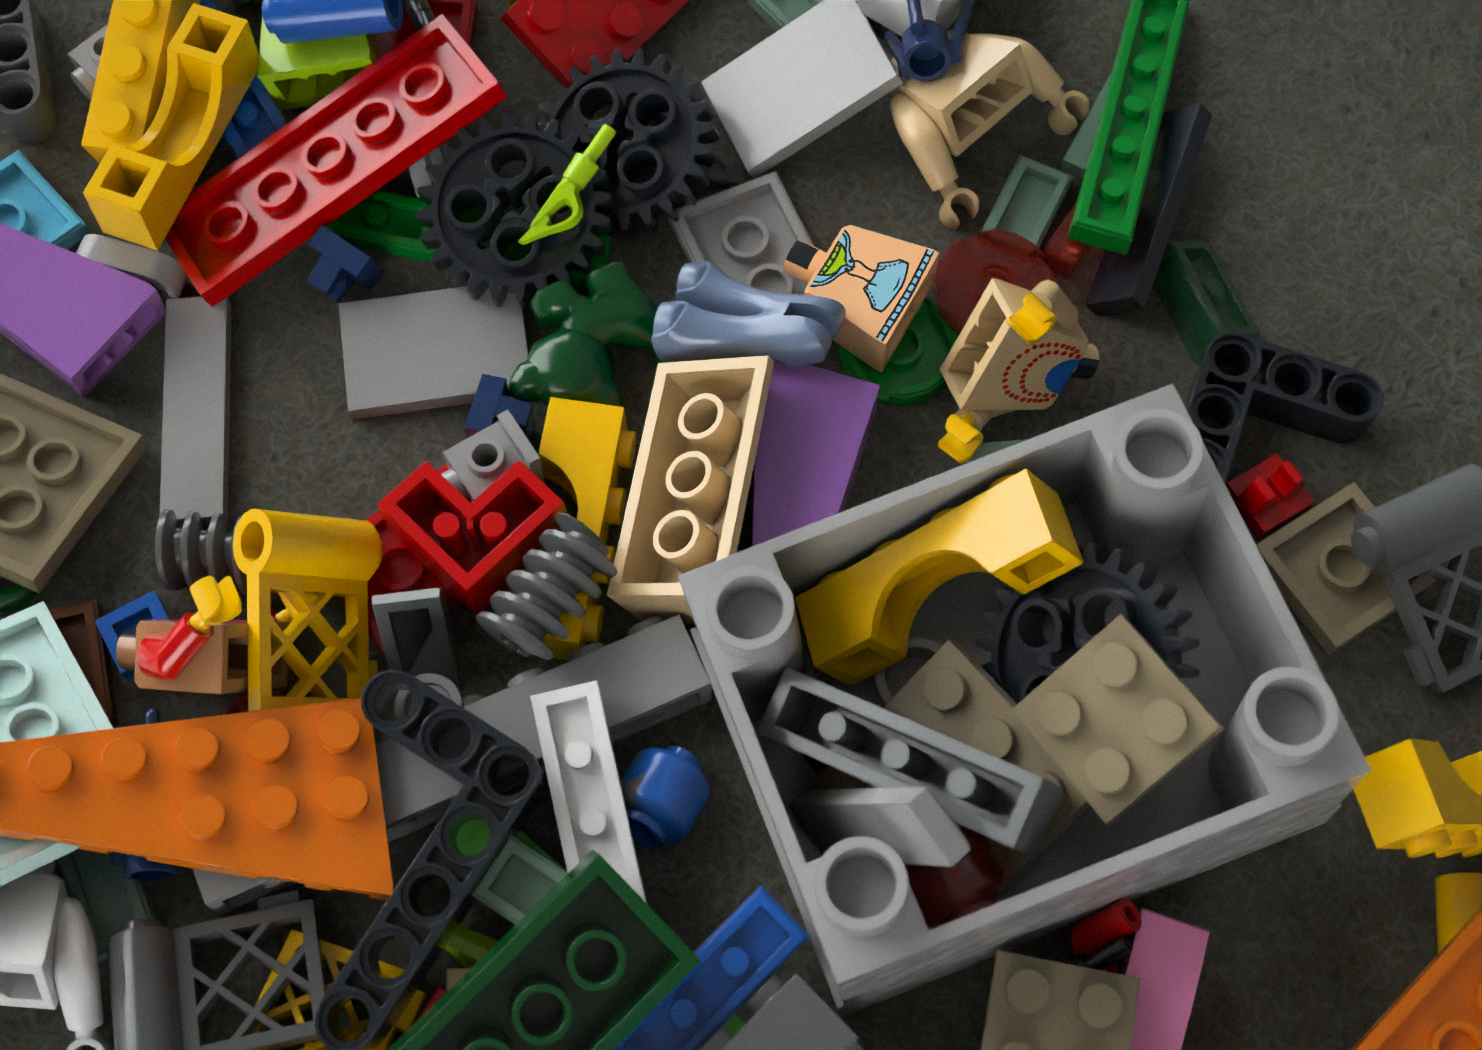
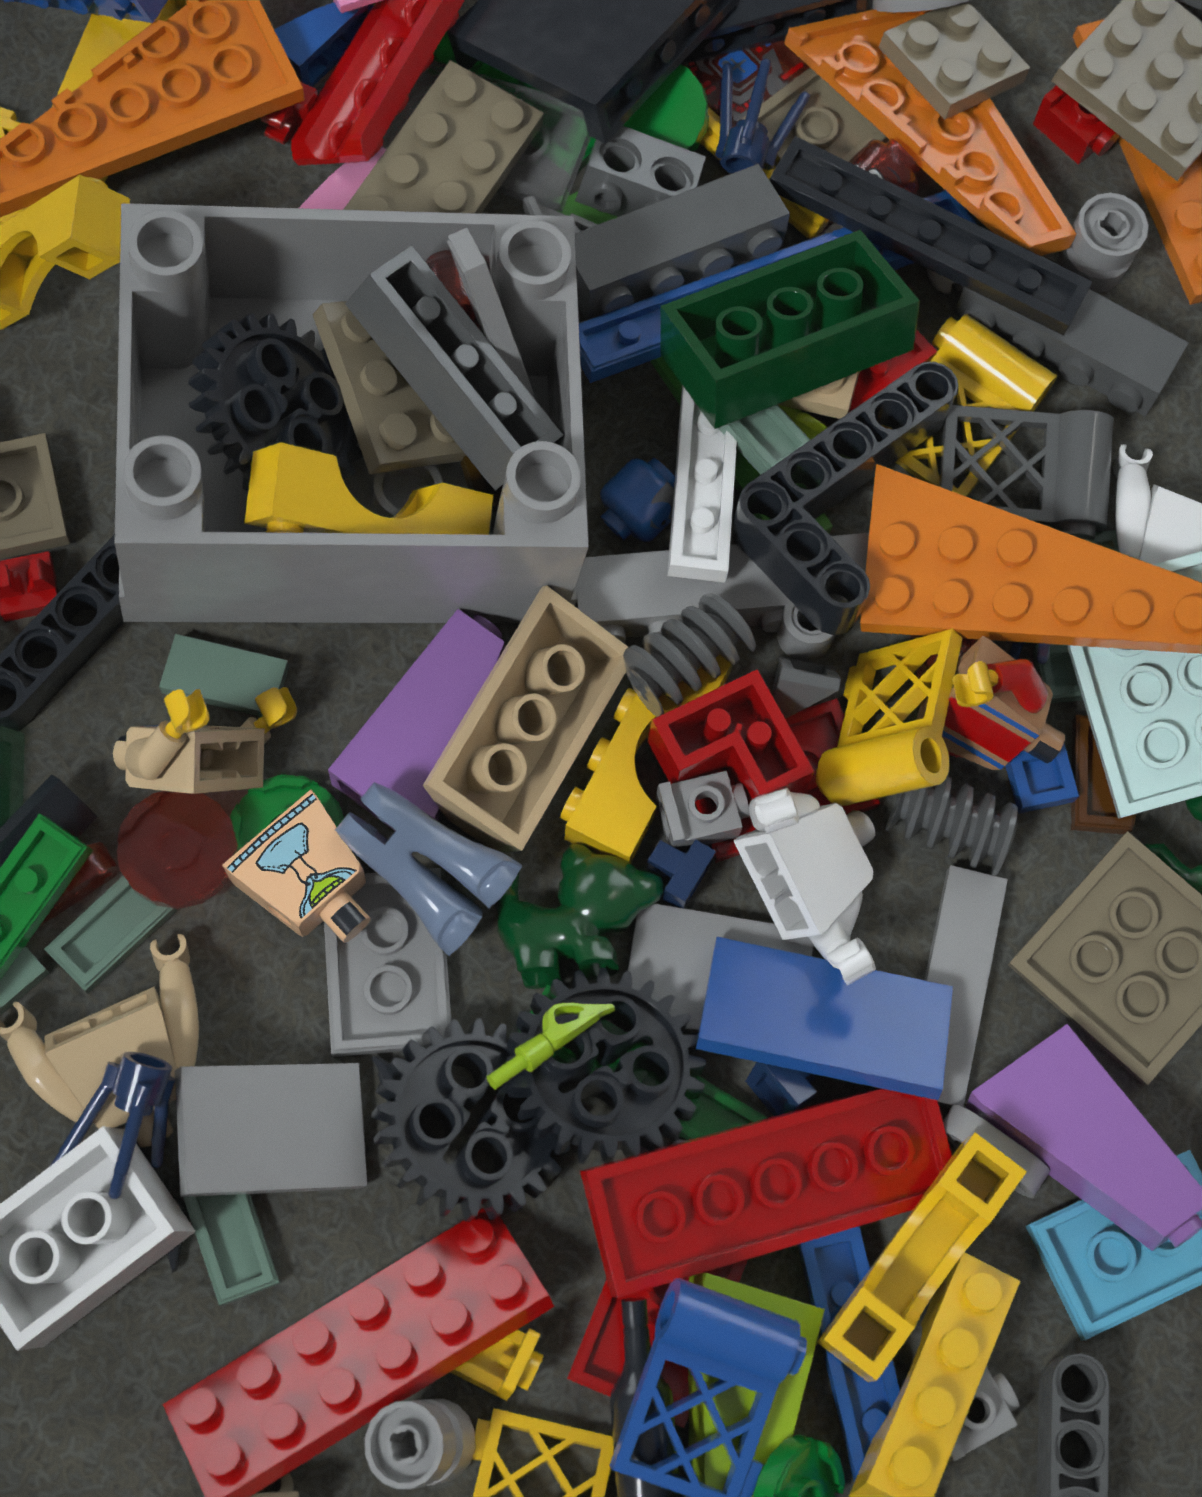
camera: 170 degrees left, 5 degrees up
(313, 313) = (807, 1019): none -> blue tile
(356, 435) = (812, 873): none -> white torso
(1116, 719) = (285, 326): dark tan plate -> none

